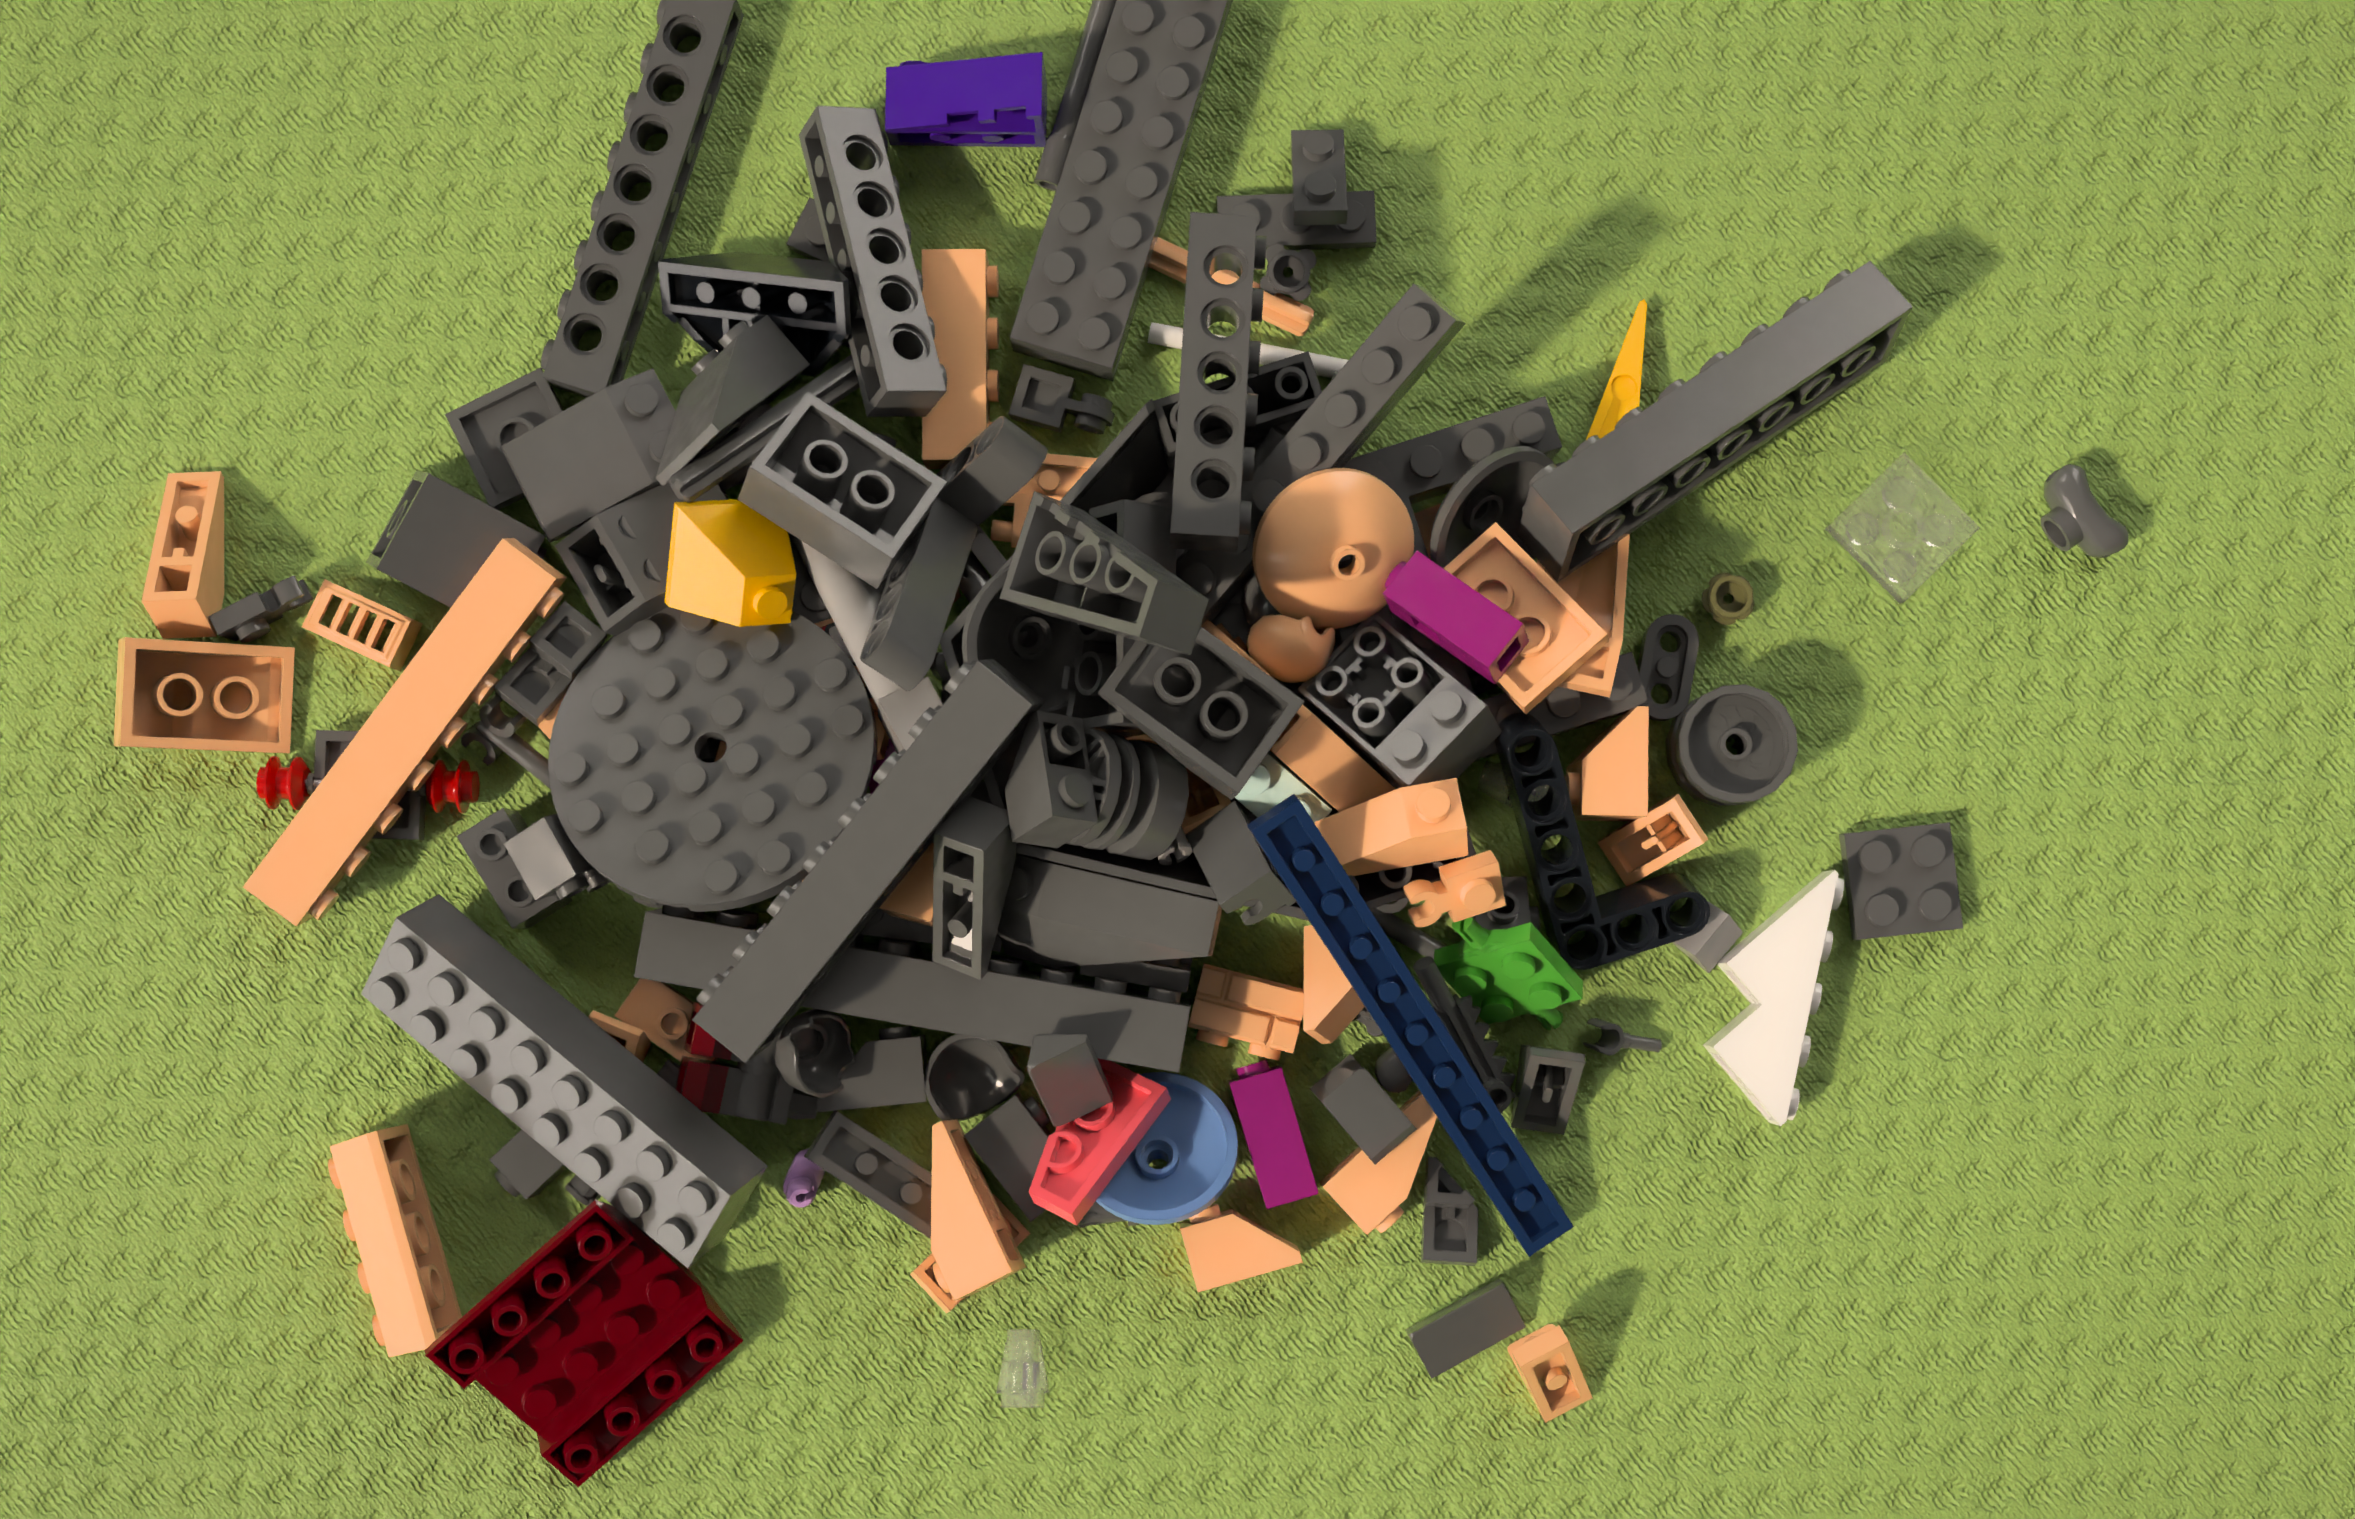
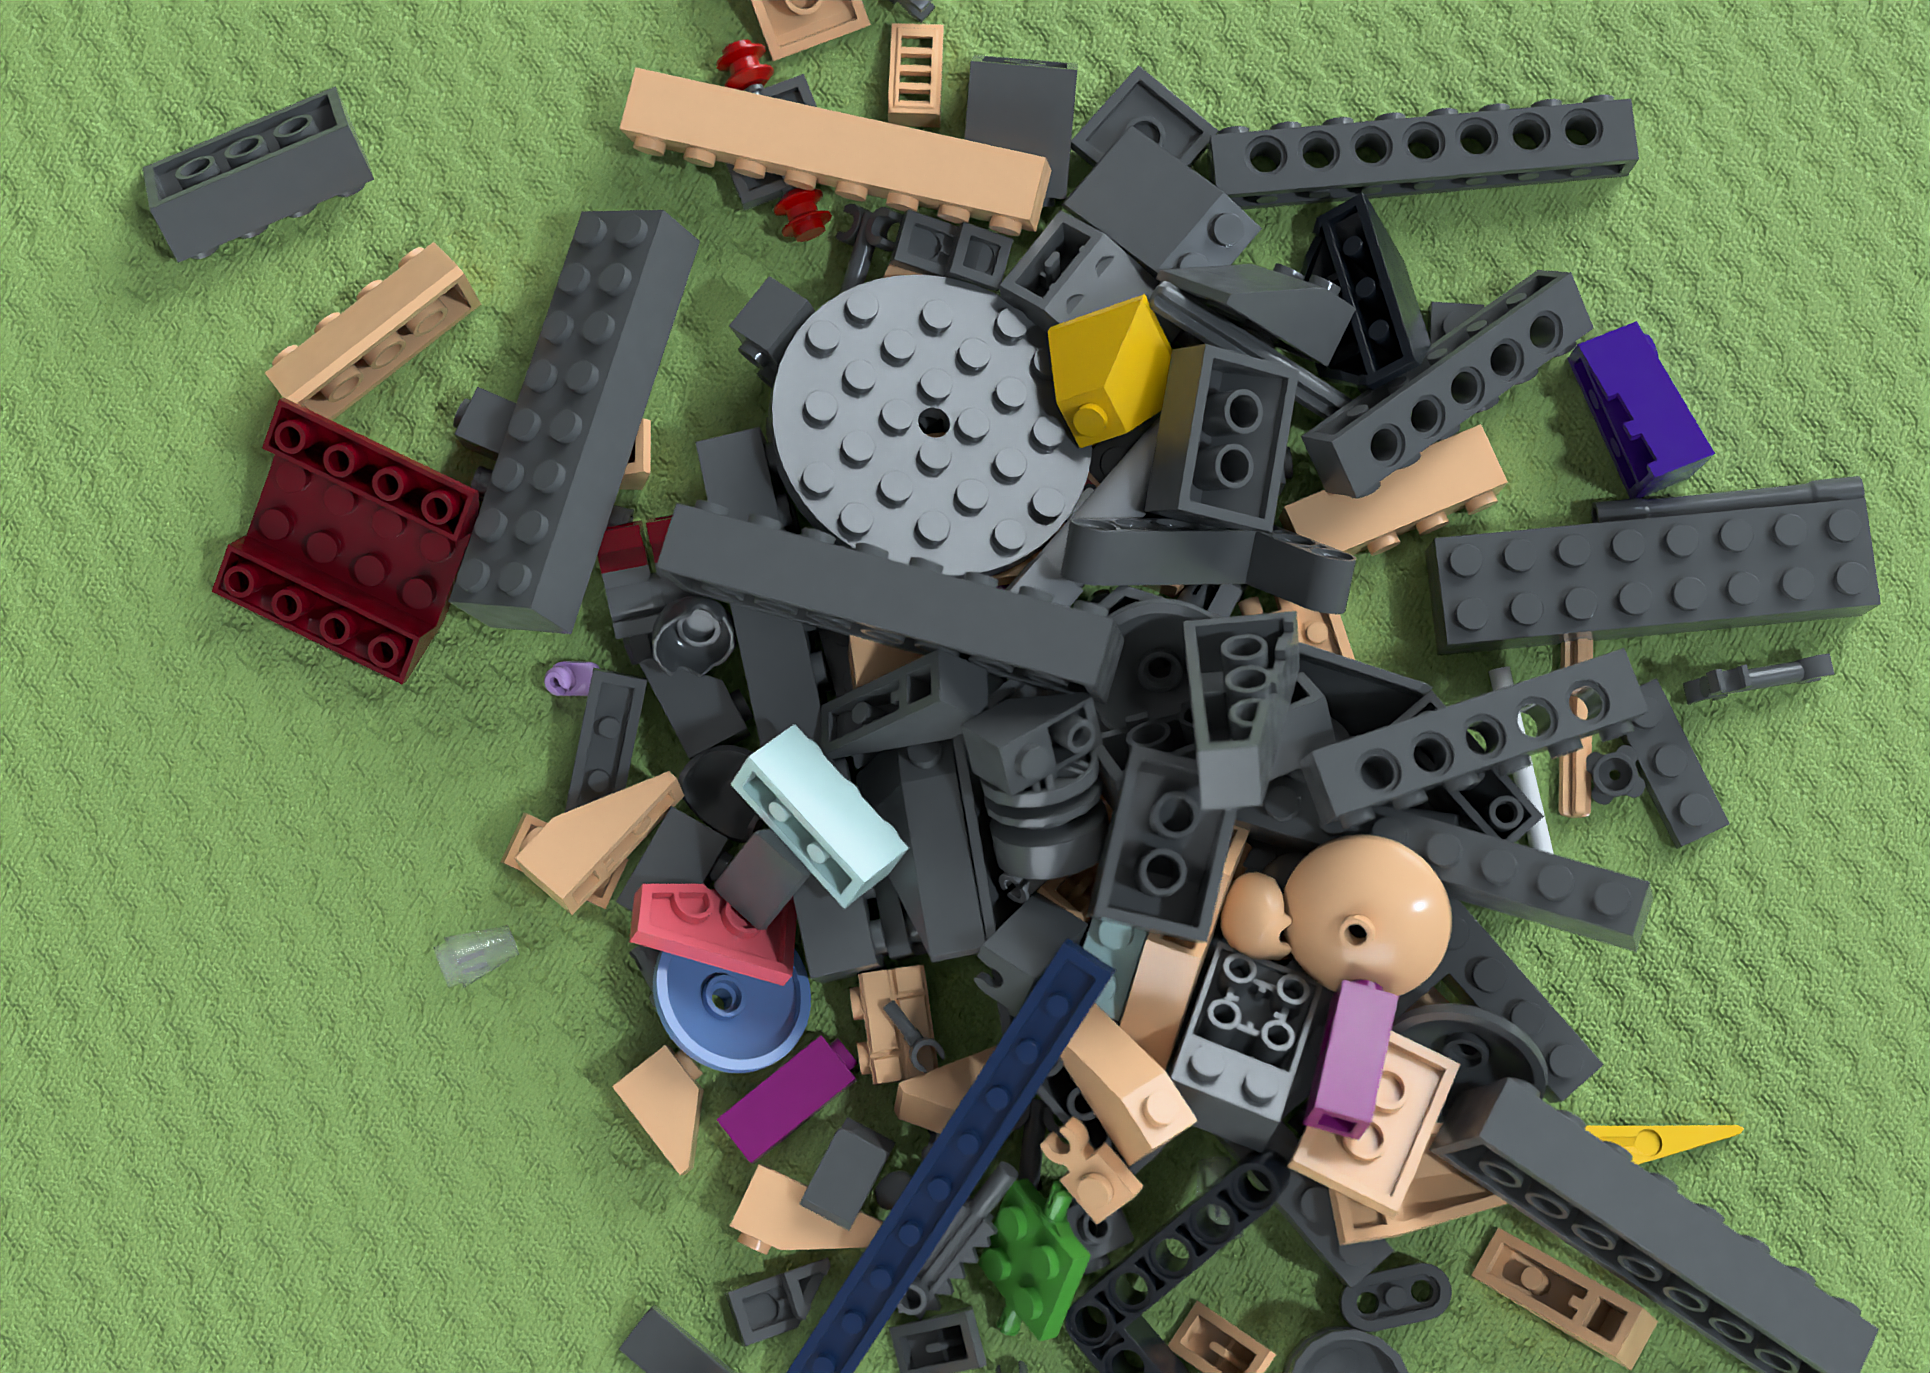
camera: 70 degrees right, 5 degrees down
(188, 1290) = (256, 175): none -> dark grey slope
(498, 871) = (747, 276): dark grey brick -> none
(661, 1014) = (672, 480): light nougat plate -> none
(1036, 1004) = (819, 815): none -> light aqua brick
(1046, 398) = (1393, 598): dark grey plate -> none
(1255, 107) = (1720, 683): none -> dark grey bar
(1265, 1000) = (911, 1034): none -> dark grey hand
(1318, 177) = (1718, 765): dark grey plate -> none
(1612, 772) = (1267, 1281): light nougat slope -> none
(1726, 520) = (1565, 1298): none -> light nougat slope
(1742, 596) = (1504, 1334): olive plate -> none

